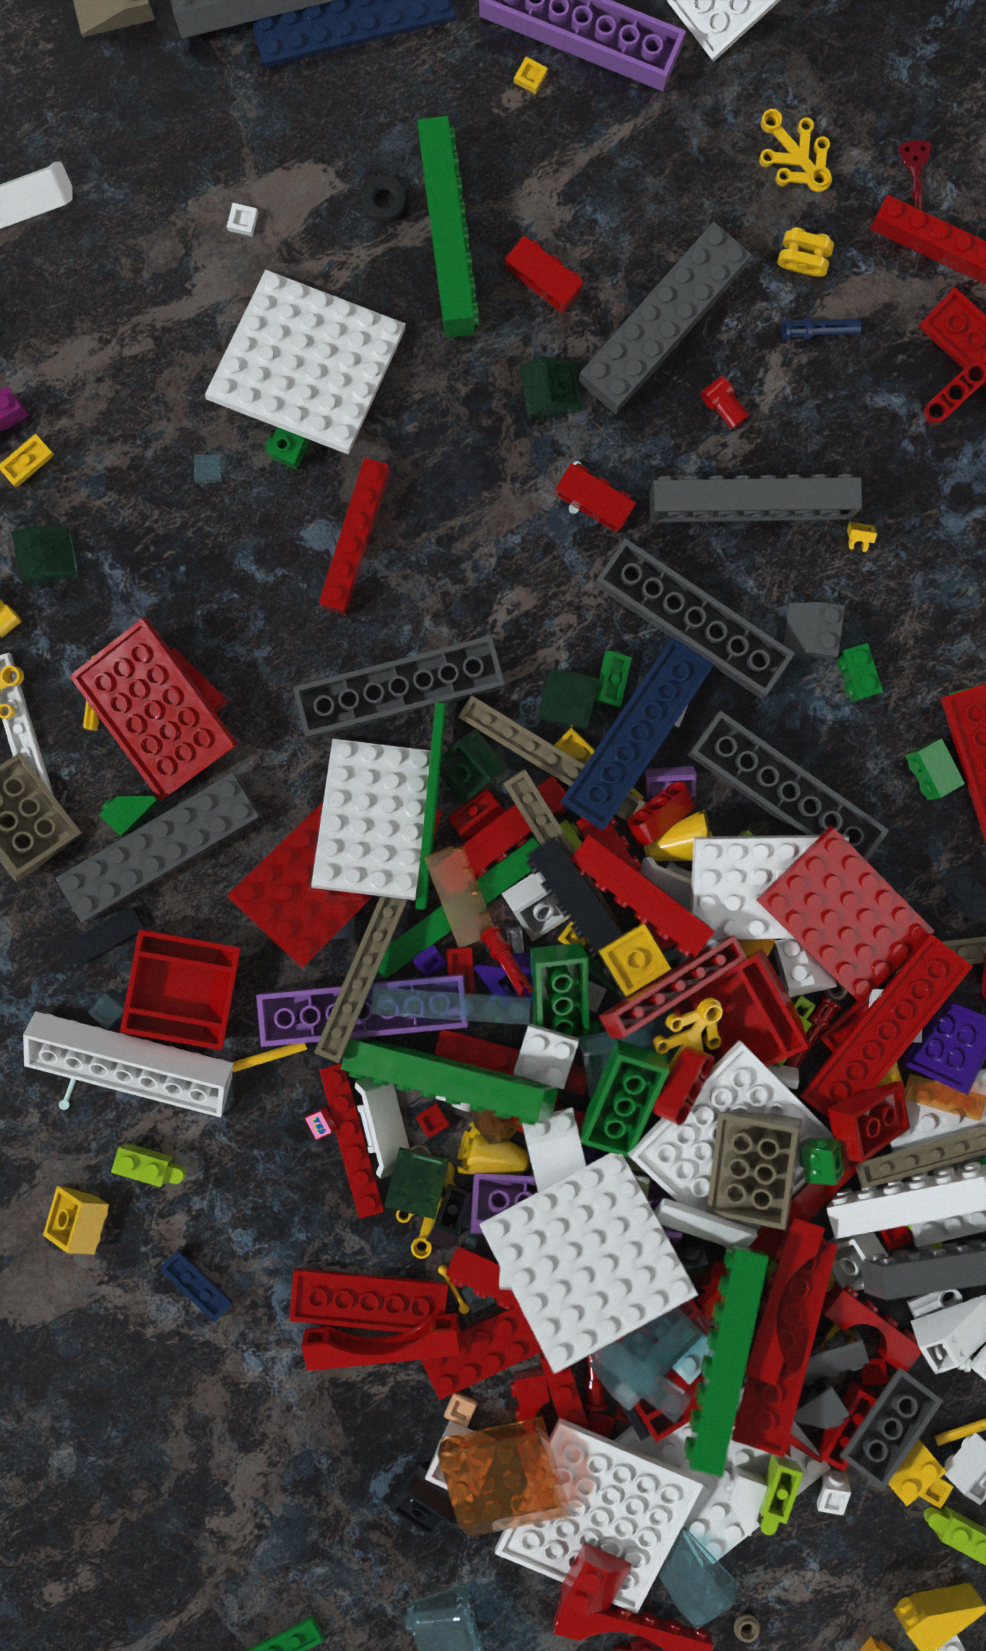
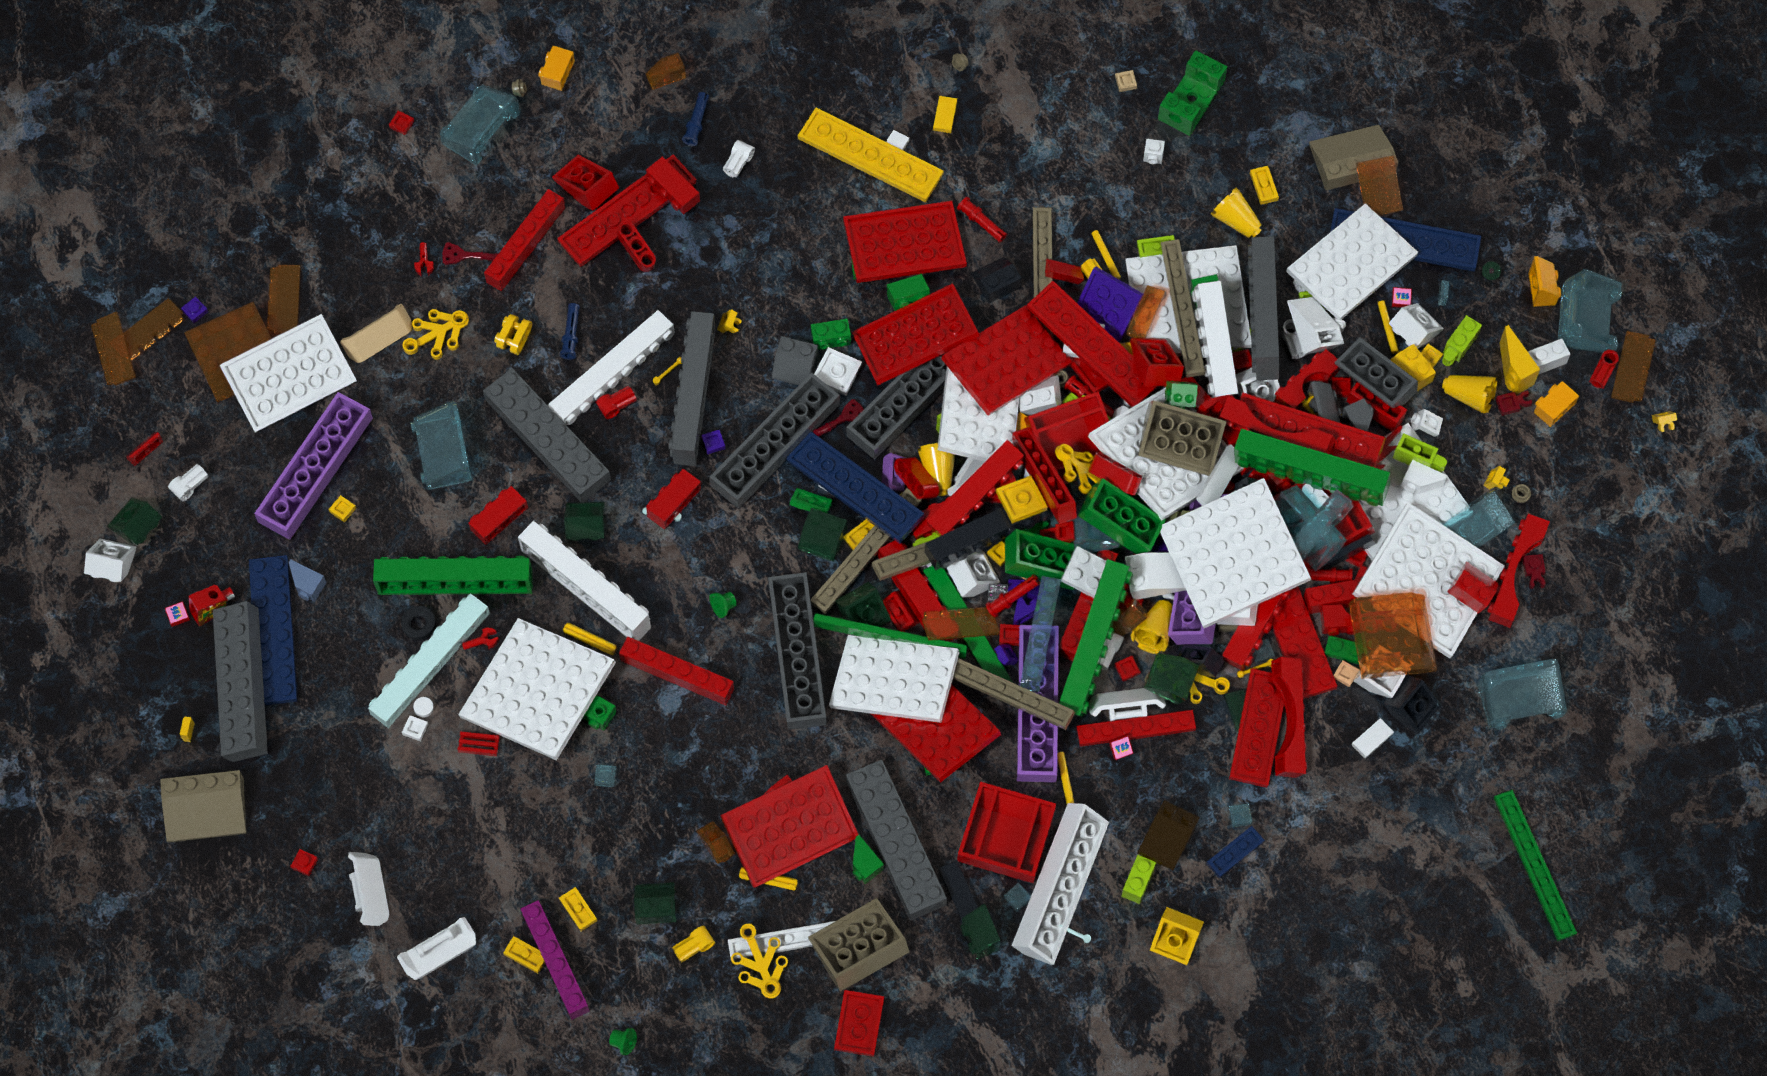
camera: 85 degrees left, 20 degrees down
(45, 971) = (980, 932): none -> clear green slope
(50, 113) = (304, 862): none -> red plate
(128, 614) = (715, 842): none -> clear orange slope
(199, 1199) = (1168, 835): none -> dark brown slope
(230, 281) = (462, 741): none -> red tile
(248, 1286) = (1240, 815): none -> clear light blue tile
(272, 225) = (423, 707): none -> white tile
(332, 219) = (429, 660): none -> light aqua brick
(371, 283) = (482, 640): none -> red bar
(374, 1451) = (1372, 738): none -> white tile
(389, 420) = (590, 638): none -> yellow axle
(399, 1266) = (1235, 704): none -> clear green tile
(421, 44) = (307, 582): none -> sand blue slope
(456, 583) = (722, 603): none -> green piece
(459, 398) = (584, 581): none -> white brick
(492, 1403) = (1341, 649): none -> green plate
(599, 1002) = (1063, 532): none -> red slope
(630, 183) = (442, 446): none -> clear light blue windscreen
(684, 538) = (713, 442): none -> dark purple plate
(743, 707) = (845, 416): none -> dark red piece
(763, 1594) = (1496, 478): none -> yellow tile
(766, 453) = (656, 380): none -> yellow hinge
(771, 388) = (612, 368): none -> white brick
(782, 76) = (377, 335): none -> tan piece
(807, 688) = (838, 370): none -> white plate
(812, 1207) = (1213, 405): none -> red slope
(870, 787) = (915, 334): none -> red plate
(879, 1608) = (1511, 403): none -> dark red plate
(888, 1554) = (1472, 390): none -> yellow cone
(899, 118) = (423, 260): none -> red bar

